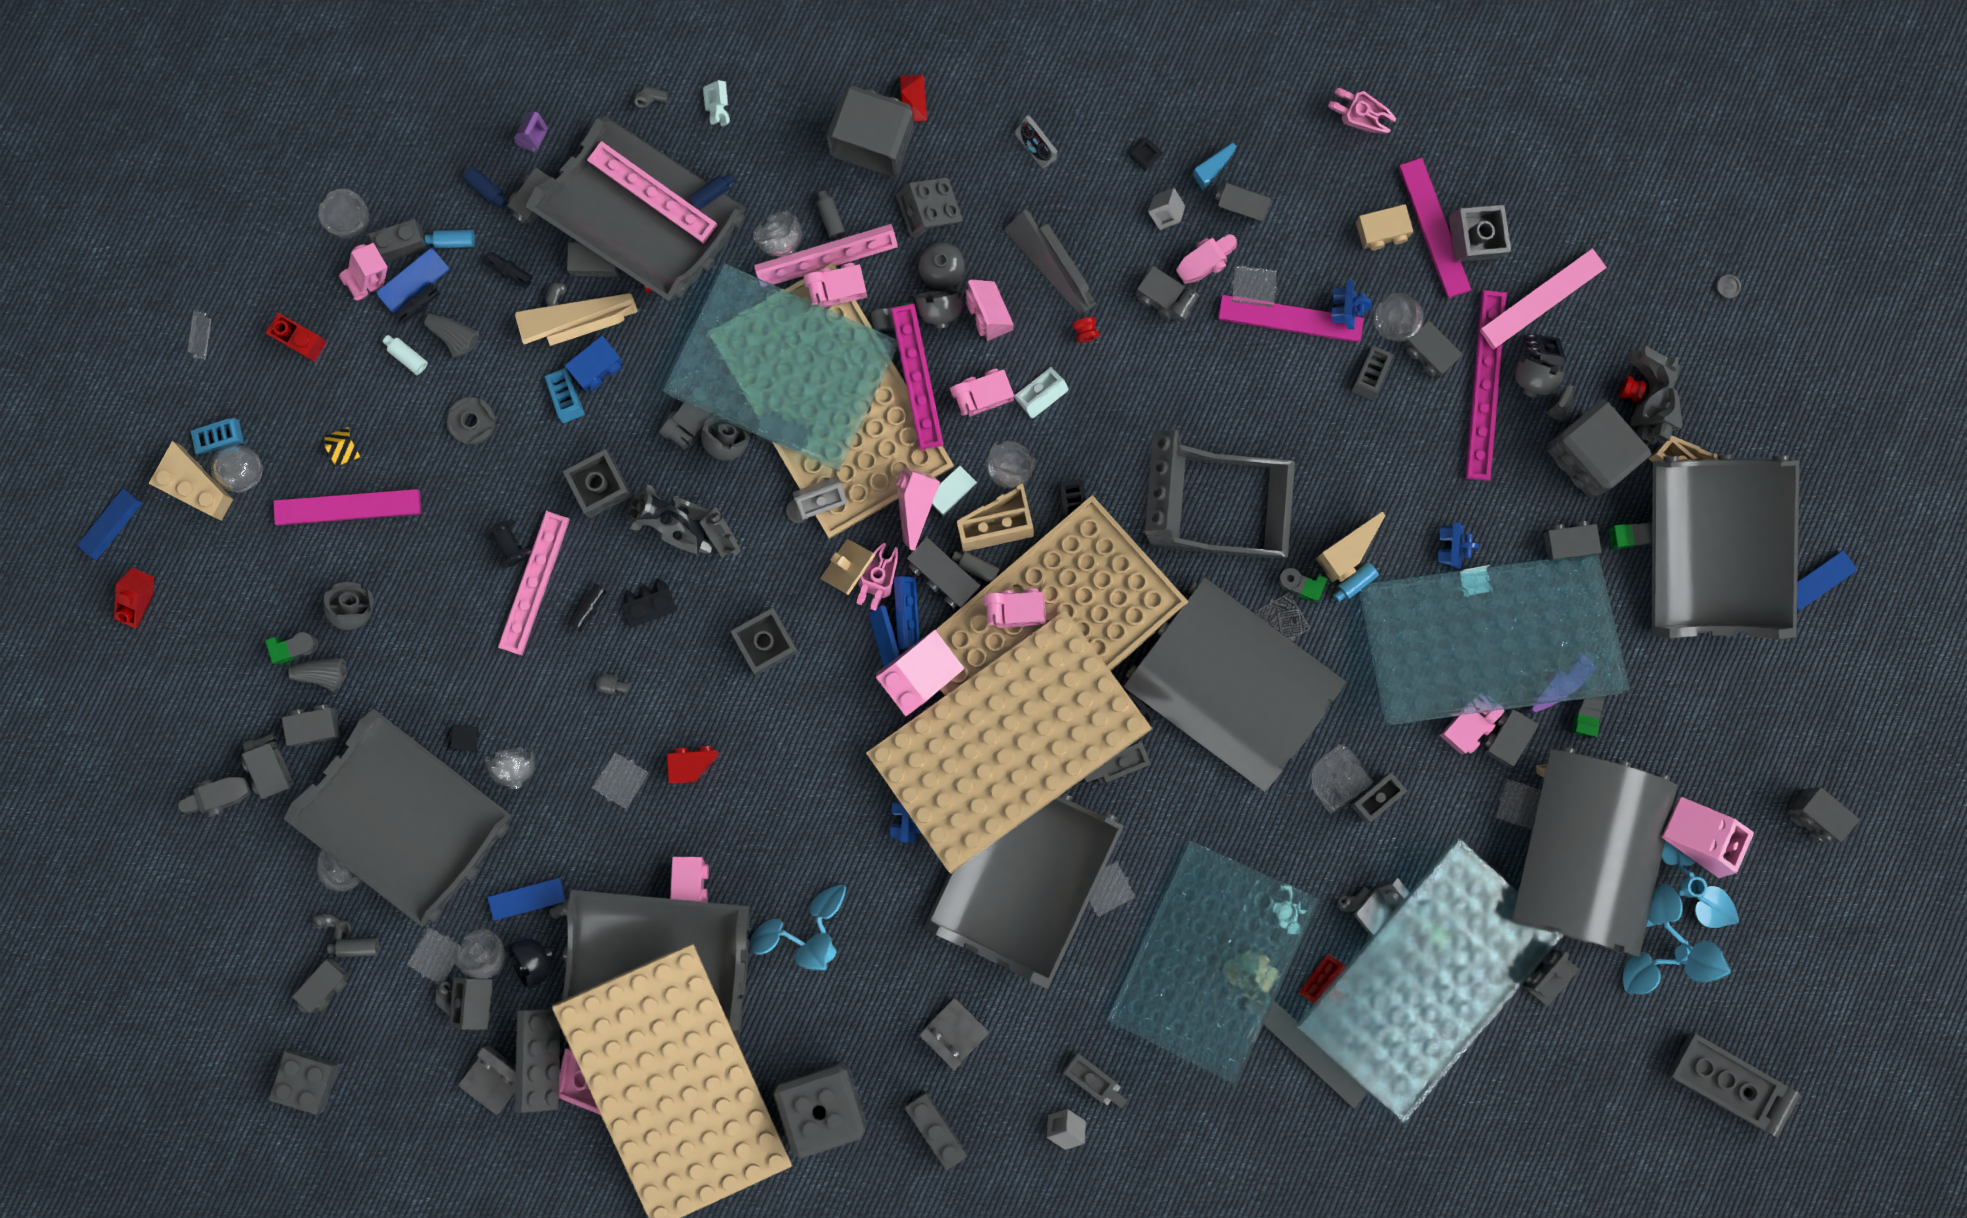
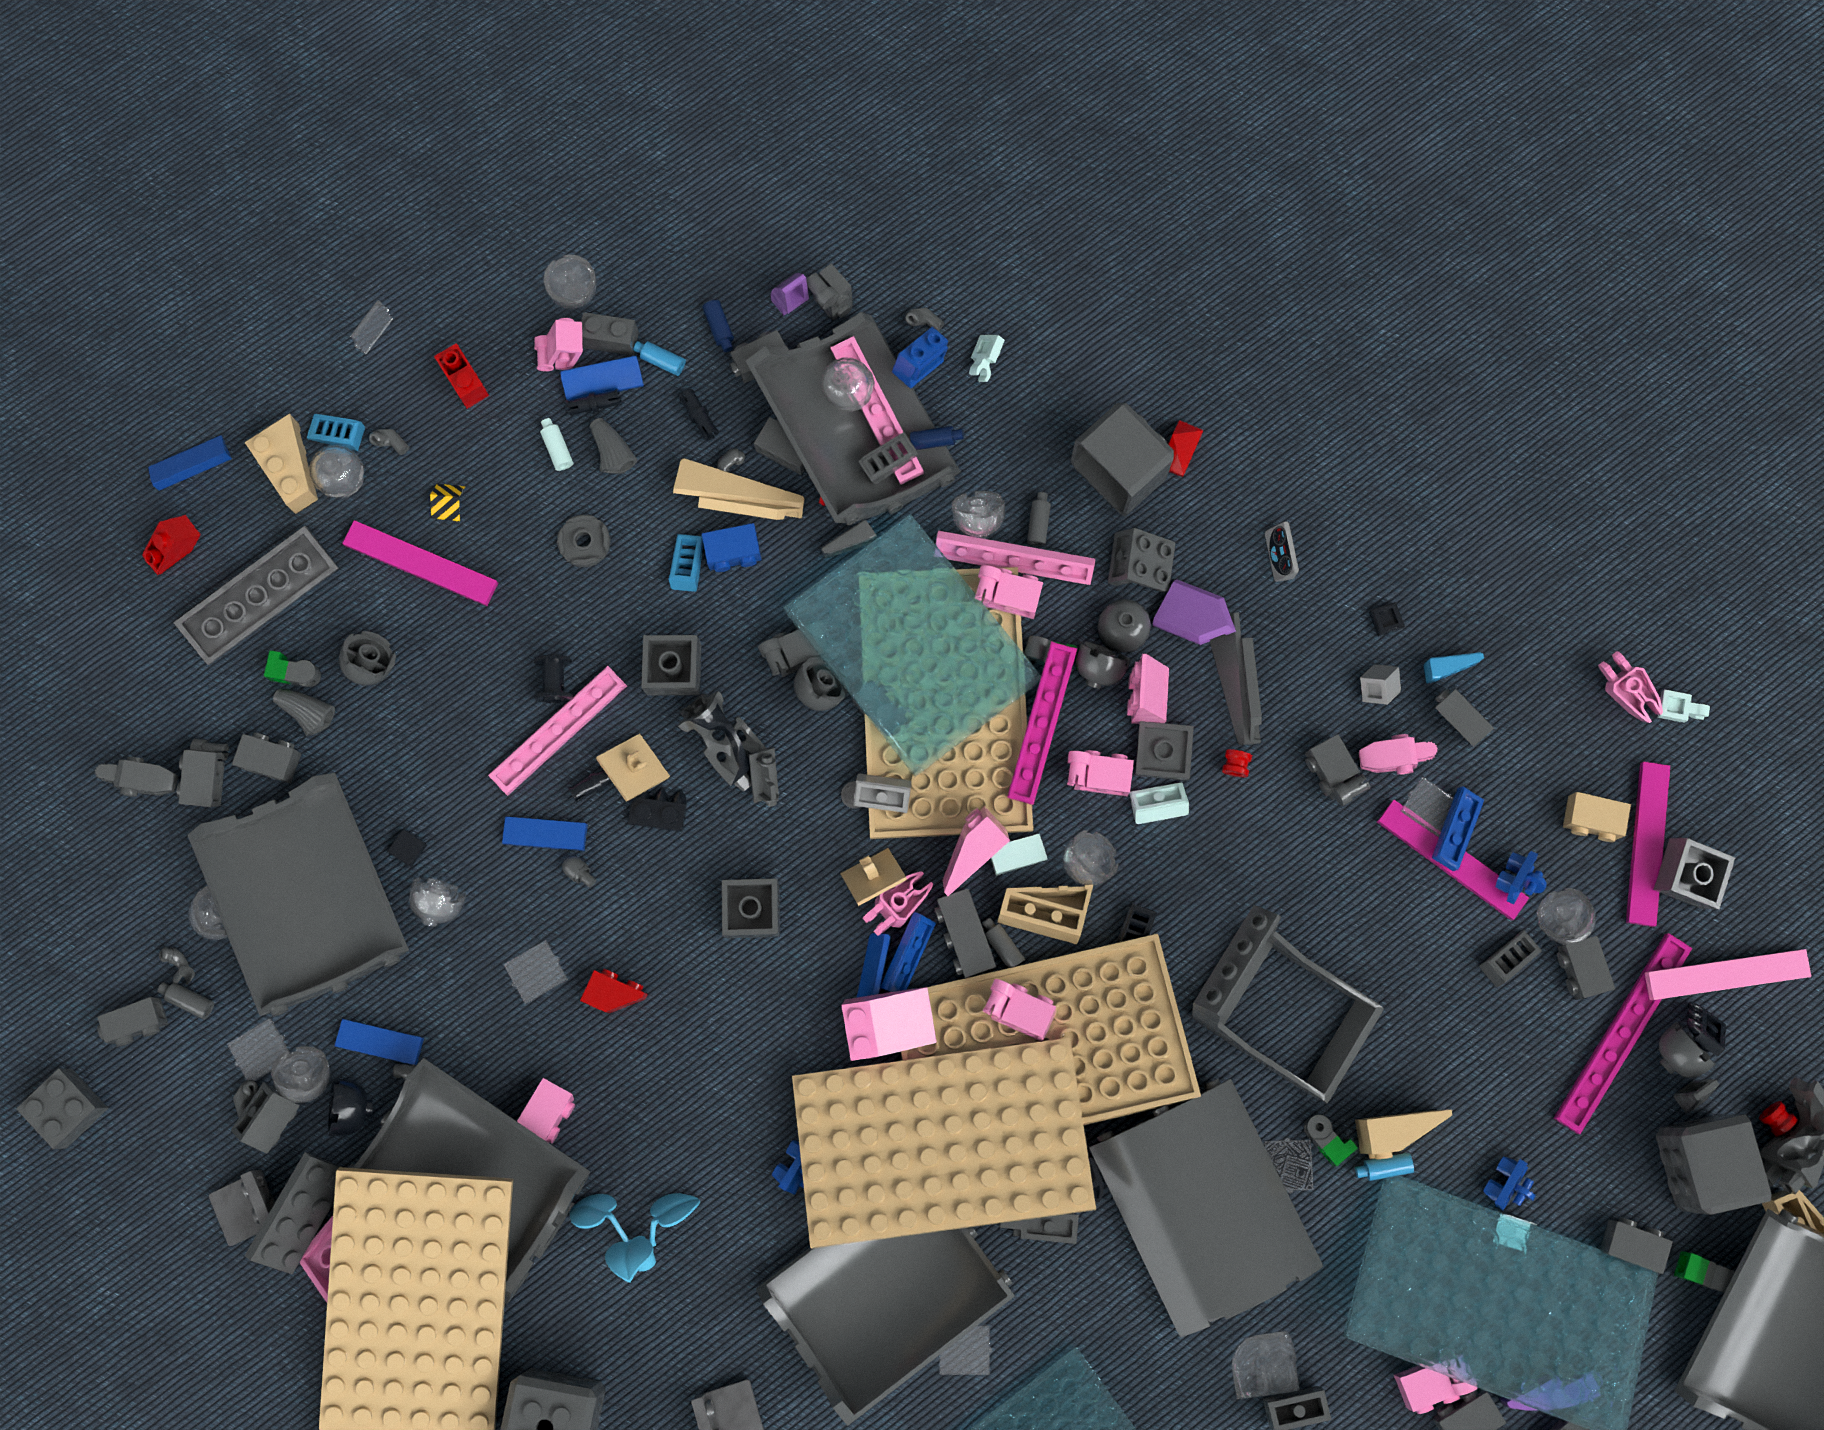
camera: 30 degrees right, 5 degrees down
(228, 602) = (256, 595): none -> flat silver arch
(265, 419) = (388, 437): none -> dark grey arm
(564, 113) = (831, 292): none -> dark grey hinge
(568, 669) = (544, 833): none -> blue tile
(610, 580) = (633, 767): none -> tan piece
(617, 183) = (847, 384): none -> clear cylinder
(665, 131) = (920, 357): none -> blue window
(675, 222) = (875, 455): none -> dark grey slope
(687, 309) = (854, 538): none -> dark grey slope
(991, 228) = (1193, 614): none -> medium lavender tile
(1024, 349) = (1164, 751): none -> dark grey plate
(1282, 292) = (1457, 828): none -> blue tile
(1406, 108) = (1678, 707): none -> light aqua plate

